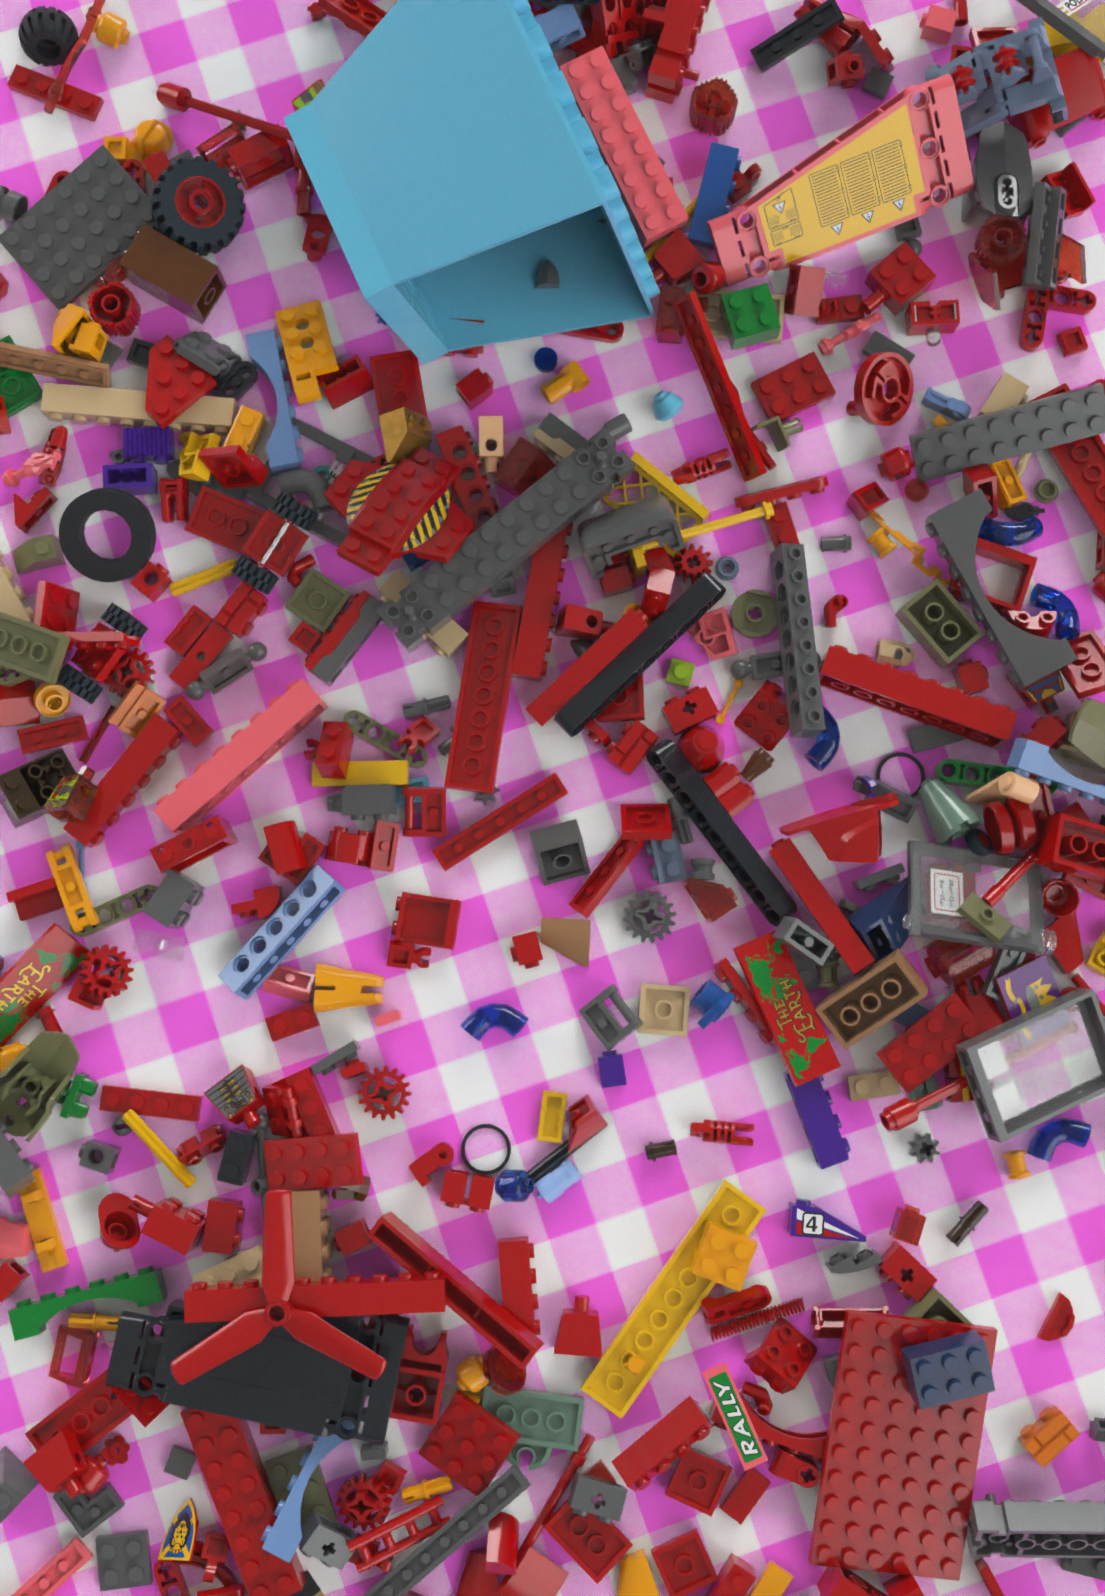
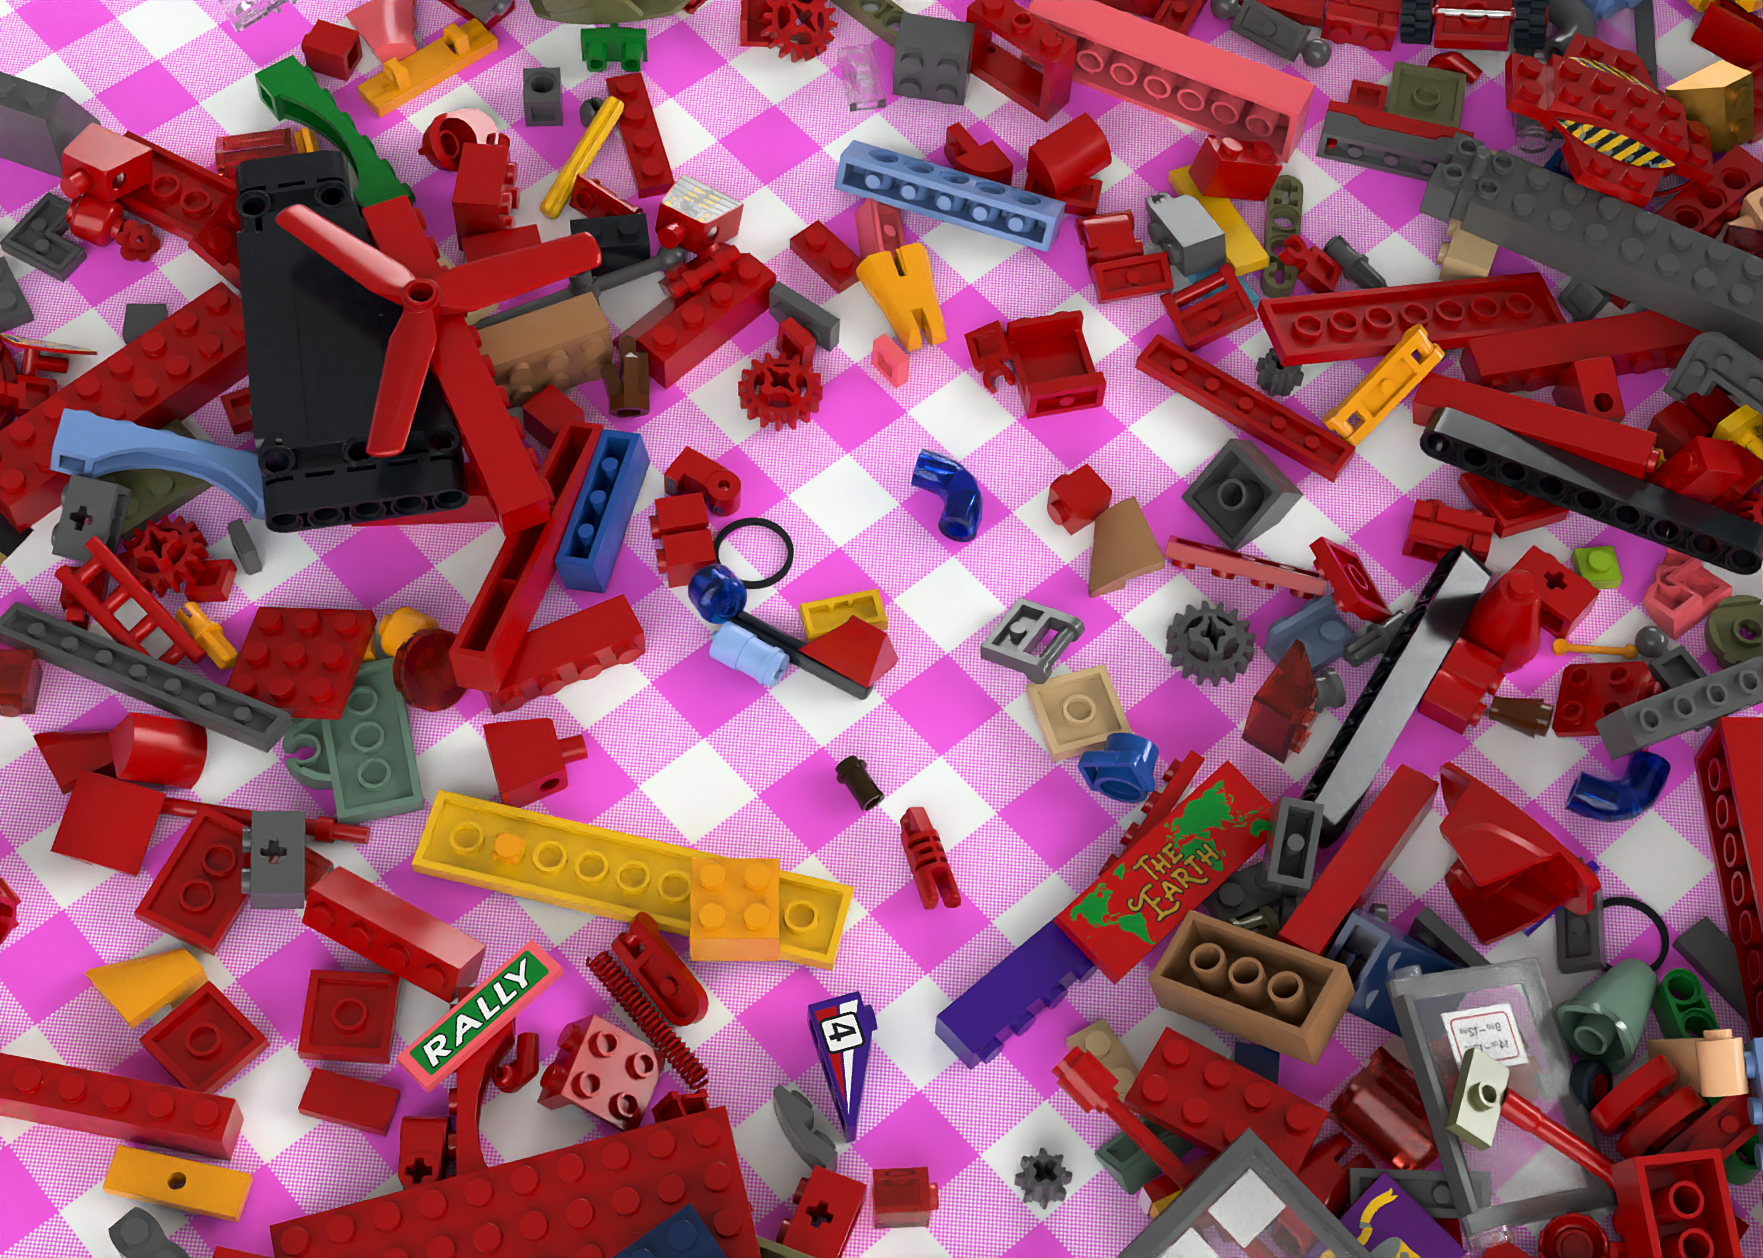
camera: 65 degrees right, 25 degrees down
(313, 1161) = (648, 317): red plate -> none
(424, 1371) = (379, 563): red brick -> none
(434, 1232) = (602, 511): none -> blue brick
(526, 738) = (1384, 386): none -> light orange plate
(597, 734) = (1443, 477): red plate -> none
(611, 1069) = (952, 669): dark purple brick -> none

